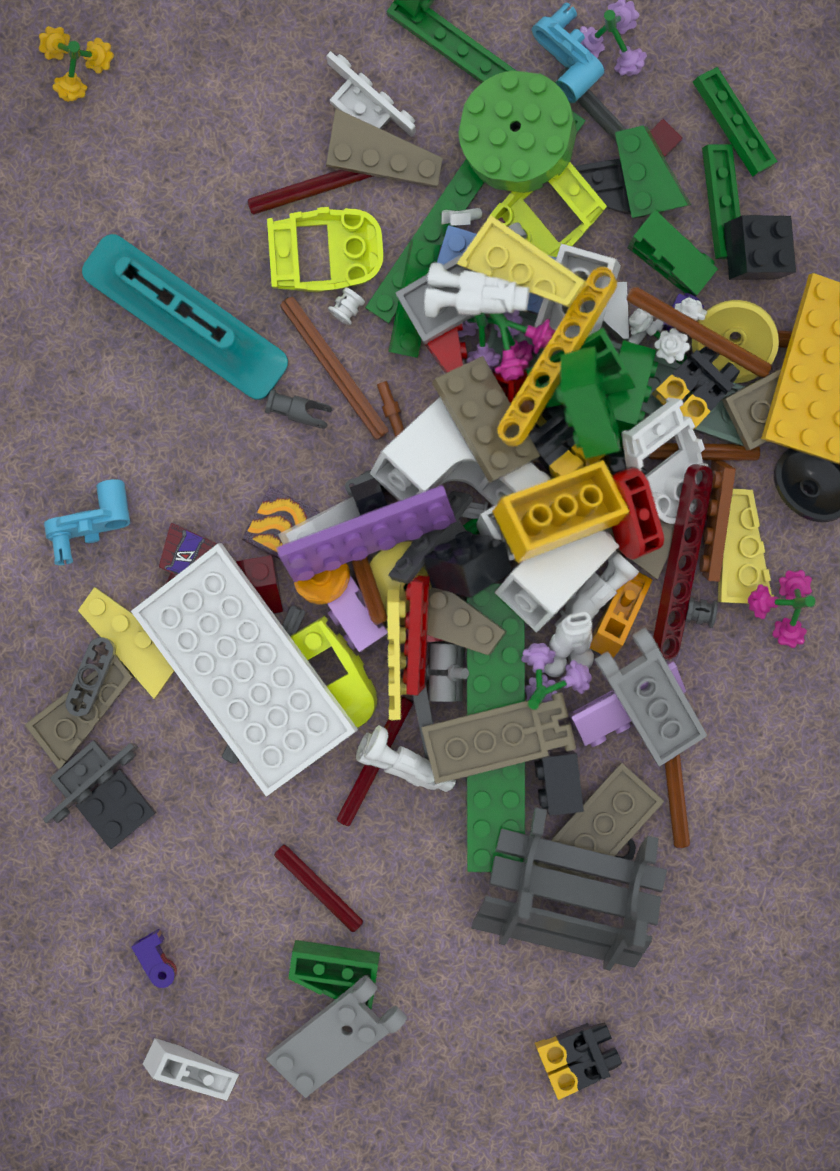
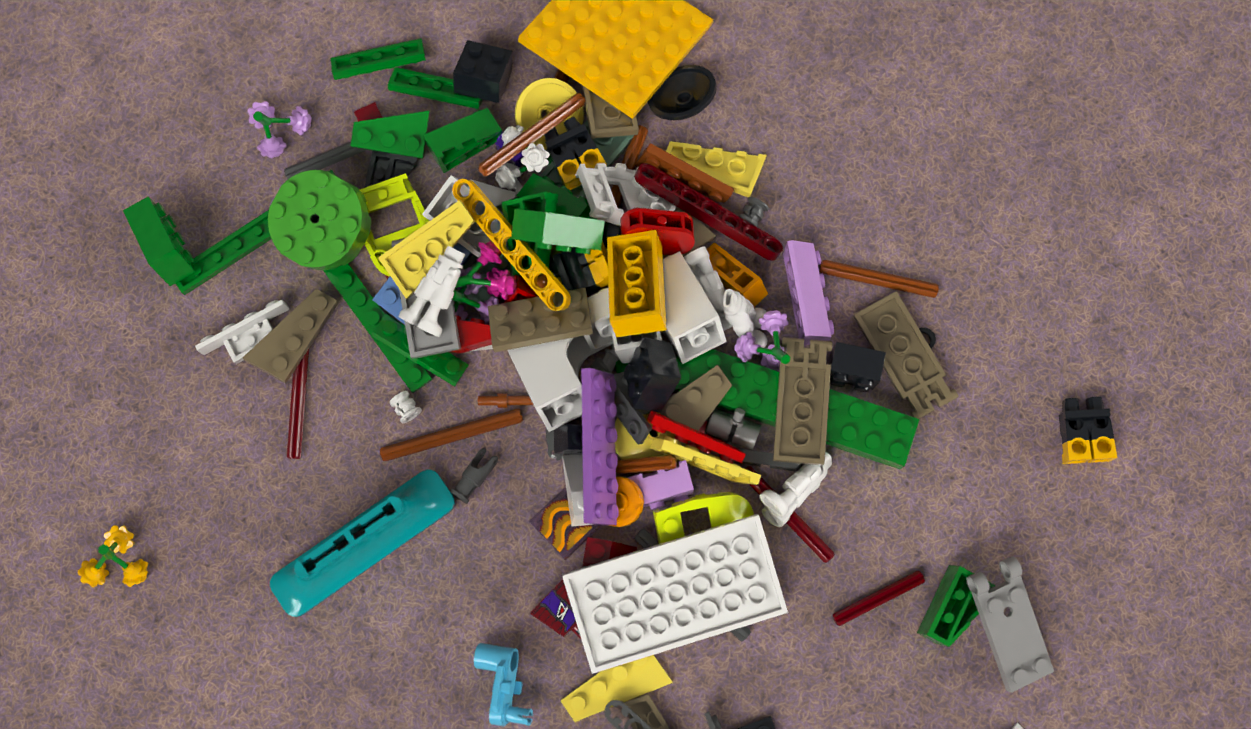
camera: 70 degrees left, 10 degrees down
(353, 249) = (356, 384): neon yellow slope -> none
(461, 217) = (369, 290): white bar -> none
(562, 931) = (965, 426): dark grey piece -> none
(567, 49) = (271, 162): medium azure piece -> none
(661, 709) = (823, 266): light grey hinge -> none
(794, 588) = (758, 136): dark pink plant -> none

